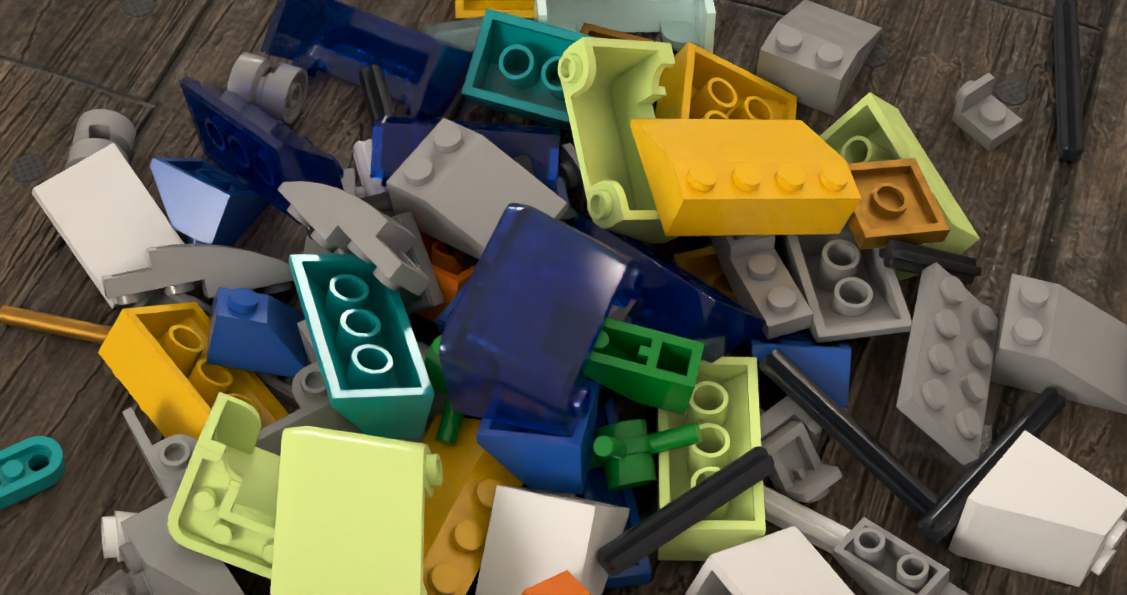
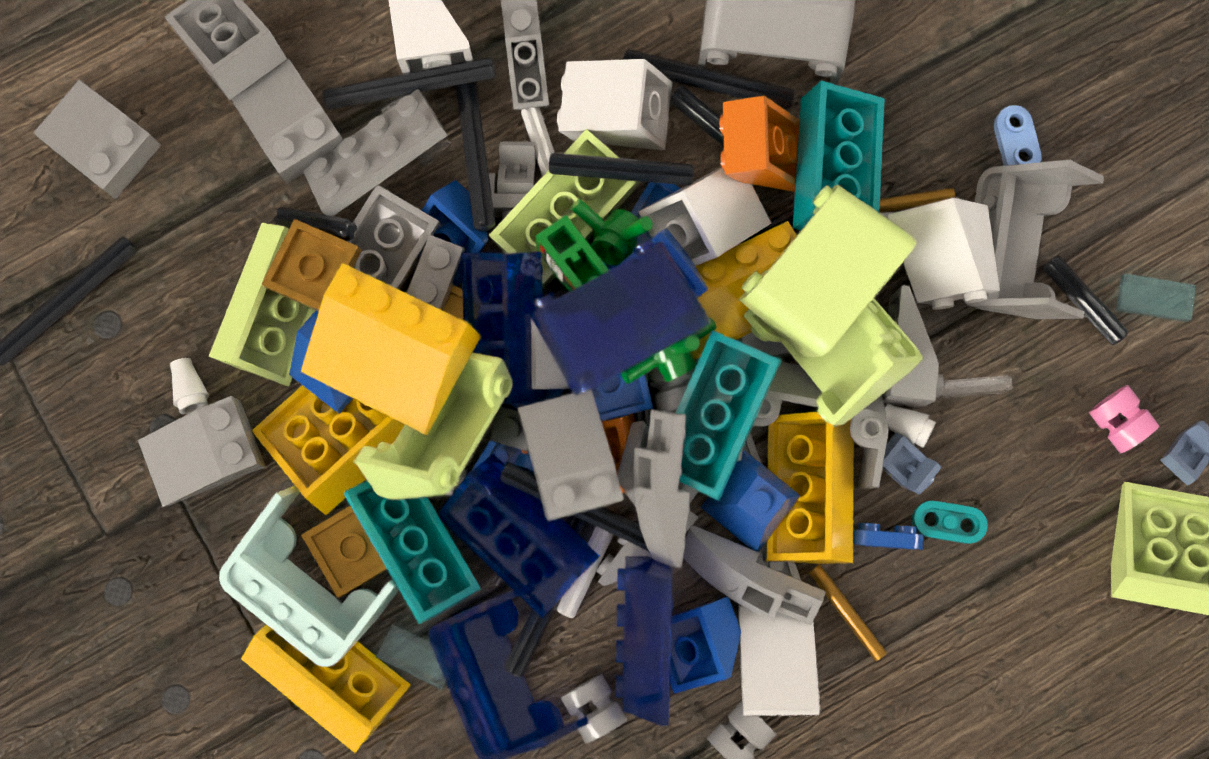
camera: 135 degrees left, 30 degrees up
(77, 407) = (902, 538): none -> blue plate
(99, 493) = (908, 465): none -> sand blue bracket
(888, 83) = (187, 387): none -> white cone
(983, 115) = (150, 314): light grey bracket -> none

